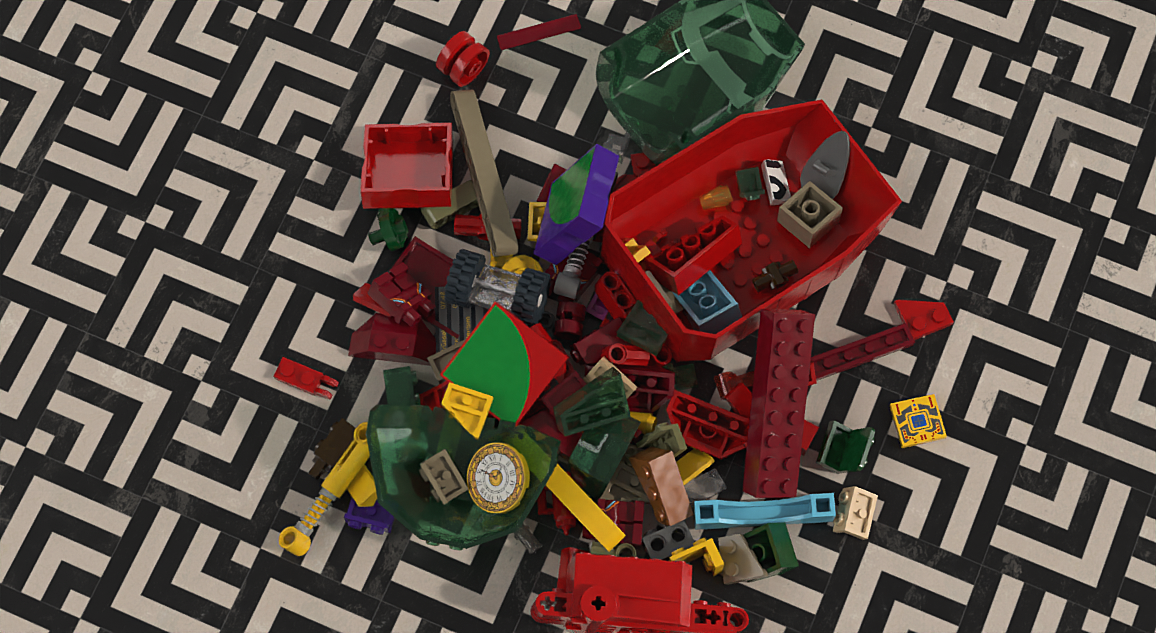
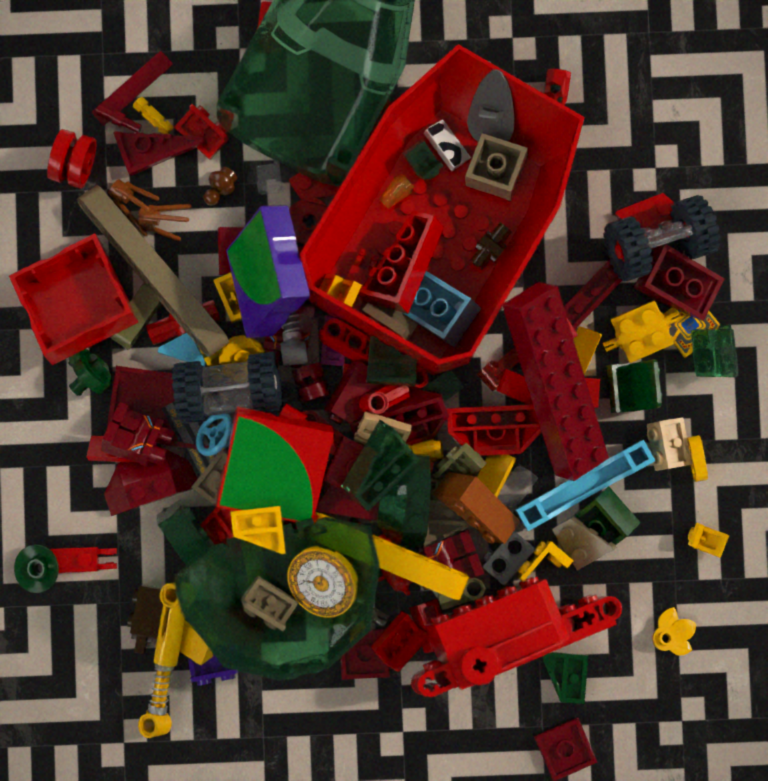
camera: 25 degrees left, 15 degrees up
(259, 361) = (27, 570): none -> dark green dish
(468, 324) = (218, 435): none -> medium azure piece
(476, 243) = (183, 349): none -> medium azure slope
(491, 106) = (122, 193): none -> dark orange plant
(503, 569) = (362, 661): none -> dark red tile
(504, 133) = (153, 216): none -> dark orange plant
(516, 49) = (118, 119): none -> dark red bar
(526, 81) = (147, 150): none -> dark red wing
(538, 569) = (399, 642): none -> red bracket
(544, 59) = (153, 116): none -> yellow axle
(574, 133) = (221, 183): none -> reddish brown animal
(579, 87) = (199, 125): none -> red bracket
(818, 398) = (585, 345): none -> yellow slope
(851, 609) = (707, 540): none -> yellow bracket
(874, 406) = (642, 331): none -> yellow plate
(874, 537) = (698, 466): none -> yellow beam
(894, 174) = (557, 84): none -> red rock
(925, 379) = (680, 282): none -> dark red slope
(930, 450) = (715, 352): none -> clear green bracket
(956, 333) = (691, 227): none -> black plate

